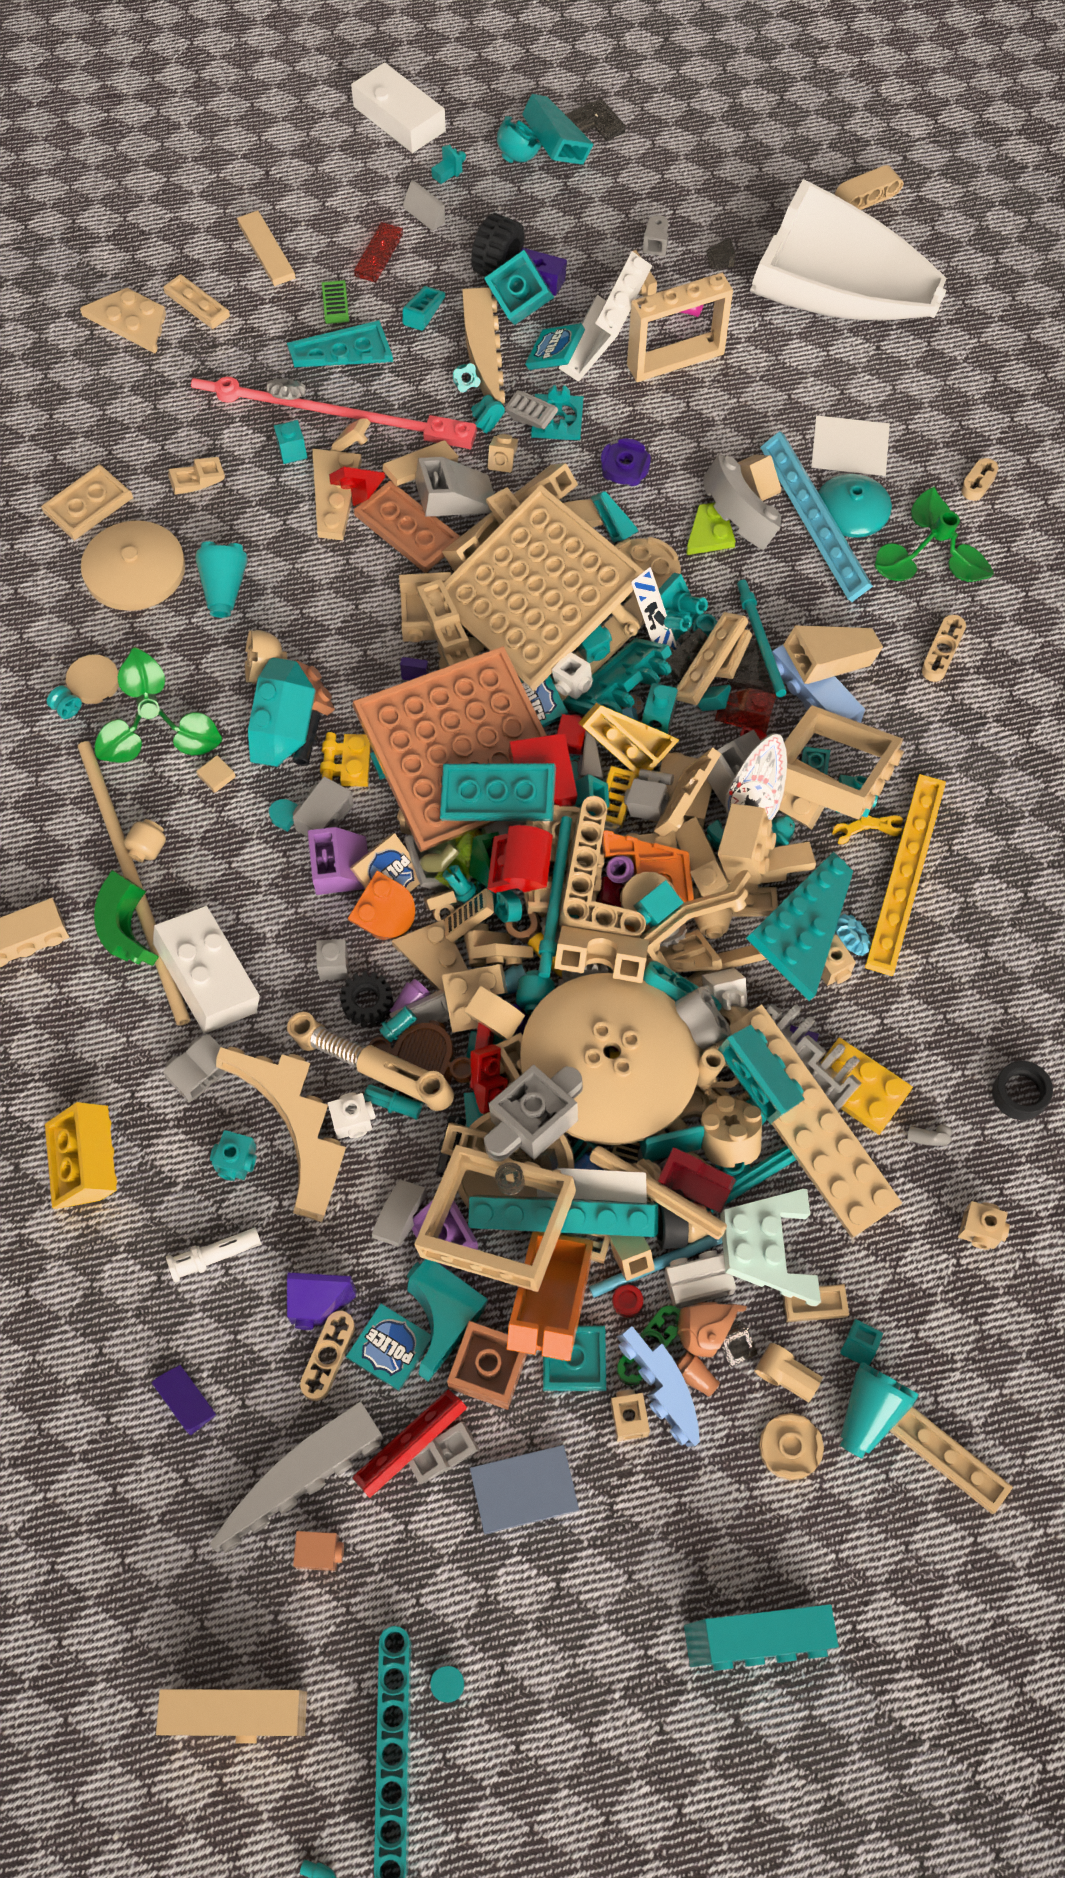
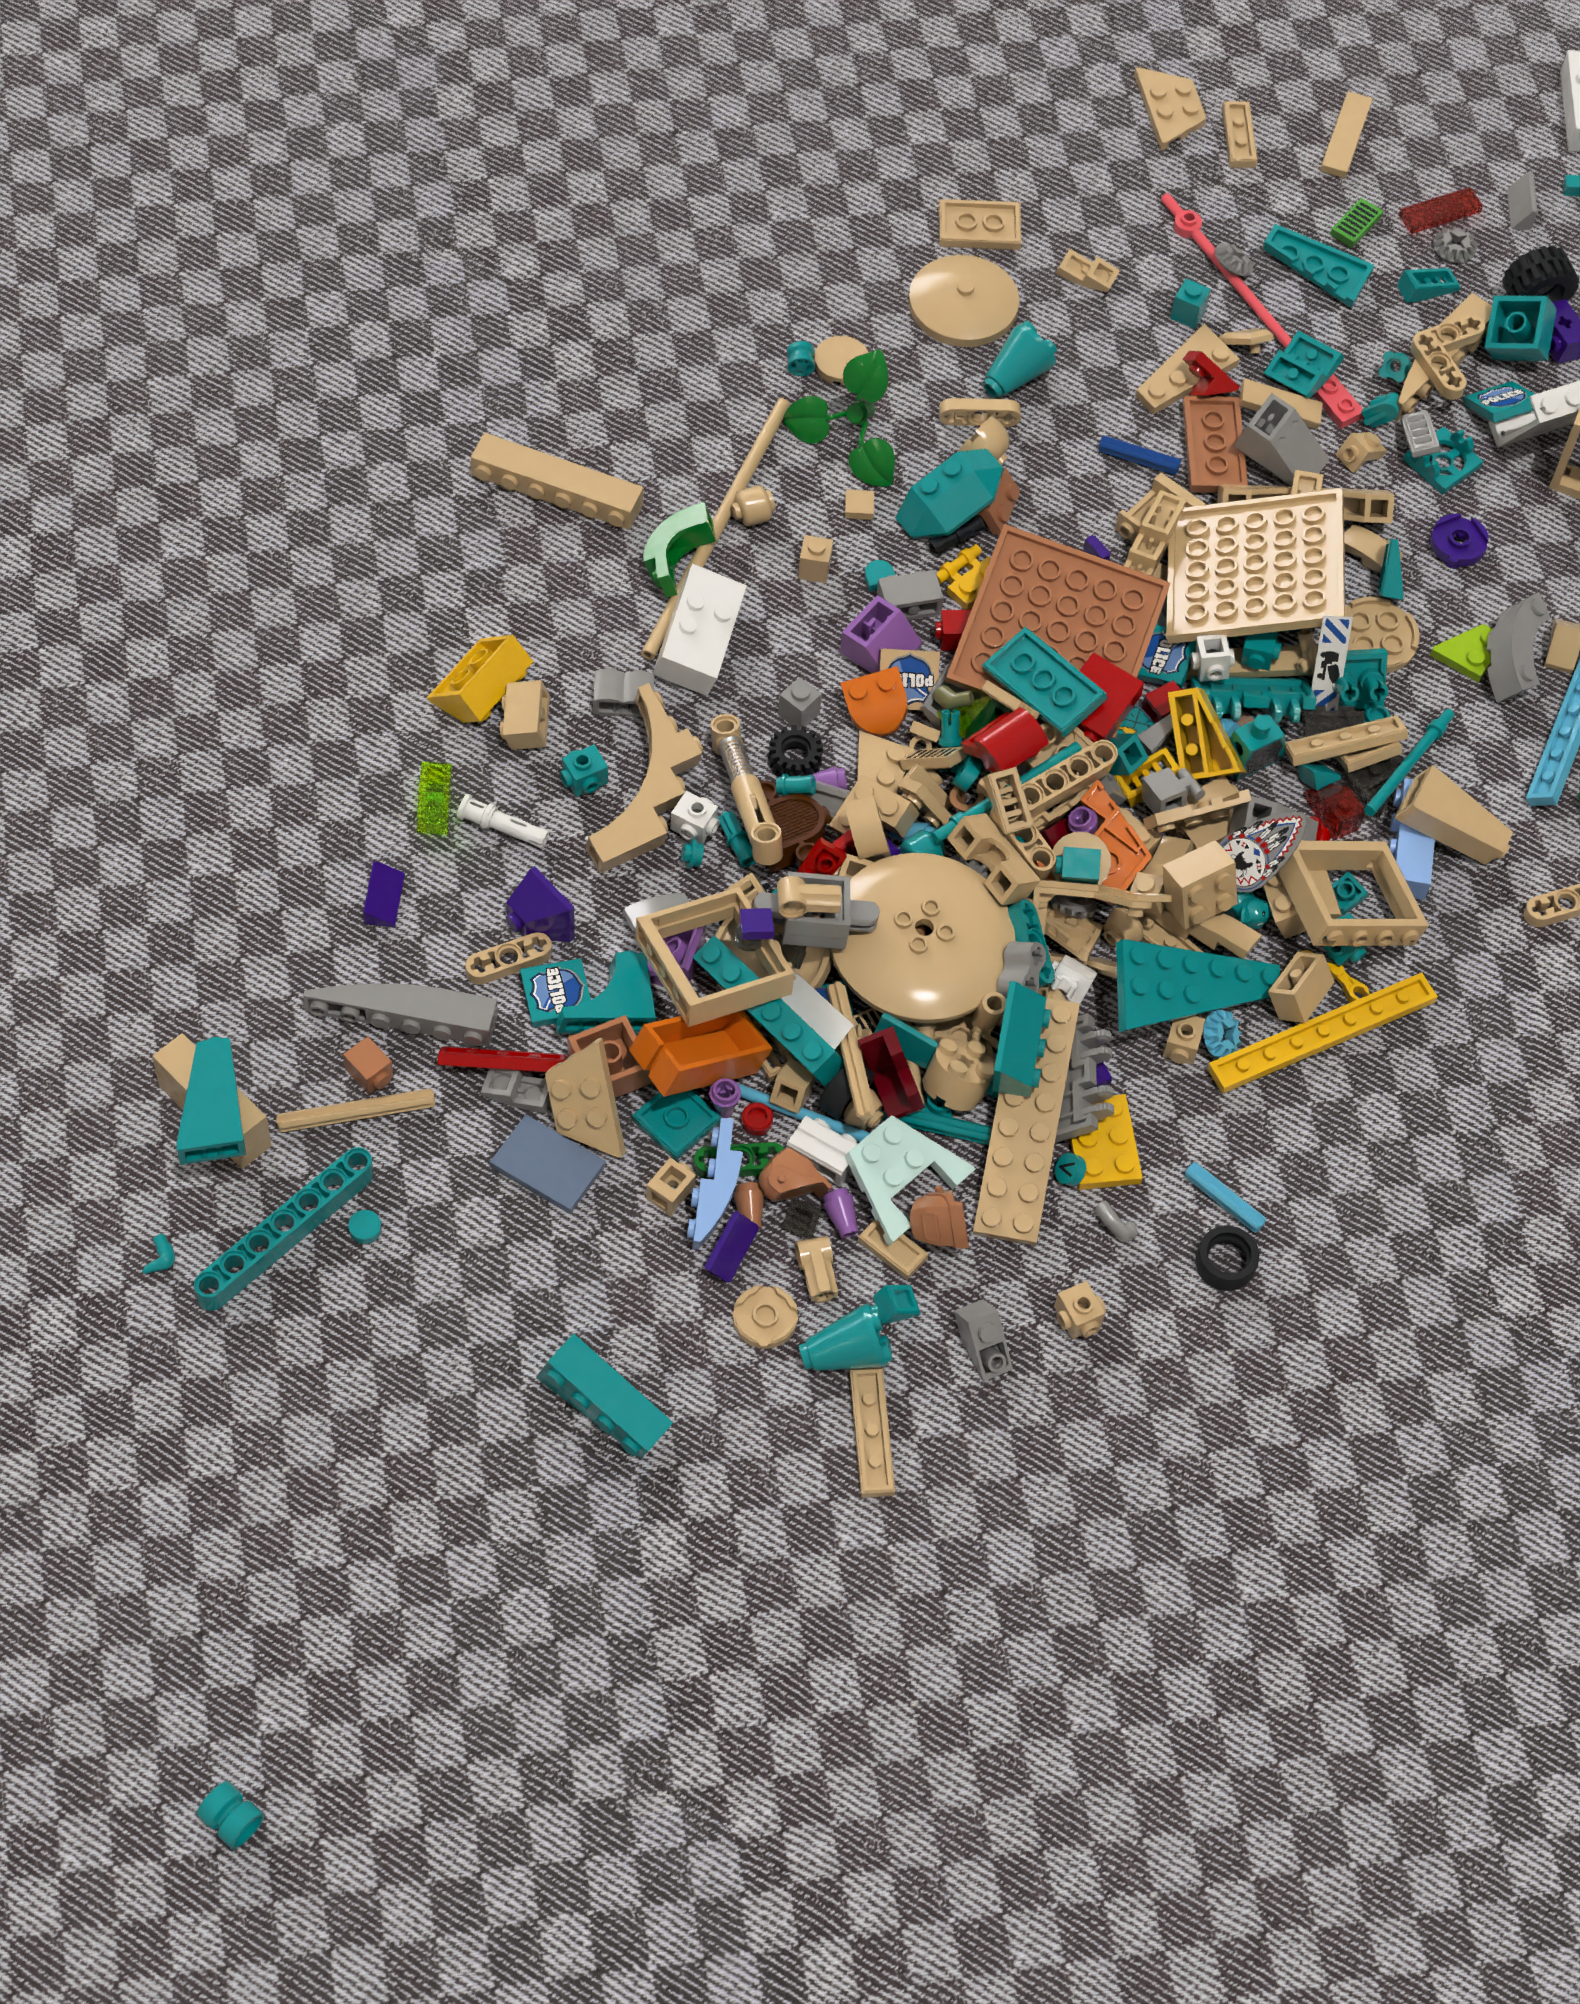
camera: 40 degrees right, 5 degrees down
(145, 1154) = (525, 715): none -> tan brick
(145, 1285) = (434, 797): none -> clear neon green slope
(229, 635) = (961, 411): none -> tan beam
(230, 841) = (815, 559): none -> tan brick
(253, 1731) = (211, 1109): none -> teal slope
(341, 1597) = (355, 1110): none -> tan axle
(366, 575) = (1139, 455): none -> blue axle
(375, 1144) = (692, 853): none -> teal plate
(379, 806) = (951, 628): none -> red brick
(408, 423) = (1304, 364): none -> teal slope
(417, 273) = (1455, 253): none -> light grey gear
(483, 341) = (1438, 352): none -> tan beam
(487, 827) = (1007, 699): none -> tan tile
(509, 1417) = (585, 1100): none -> tan wing
(511, 1166) = (756, 923): none -> dark purple tile
(526, 1118) = (797, 898): none -> tan piece
(569, 910) = (1019, 797): none -> tan slope
(600, 1303) = (725, 1096): none -> medium lavender cone
(719, 1420) = (731, 1247): none -> dark purple slope
(760, 1313) = (841, 1210): none -> medium lavender cone
(835, 1255) = (939, 1219): none -> nougat helmet
(866, 855) = (1301, 987): none -> tan brick
(866, 1127) = (1070, 1169): none -> teal tile
(946, 1309) = (984, 1339): none -> light grey slope
(972, 1047) = (1225, 1197): none -> medium azure axle

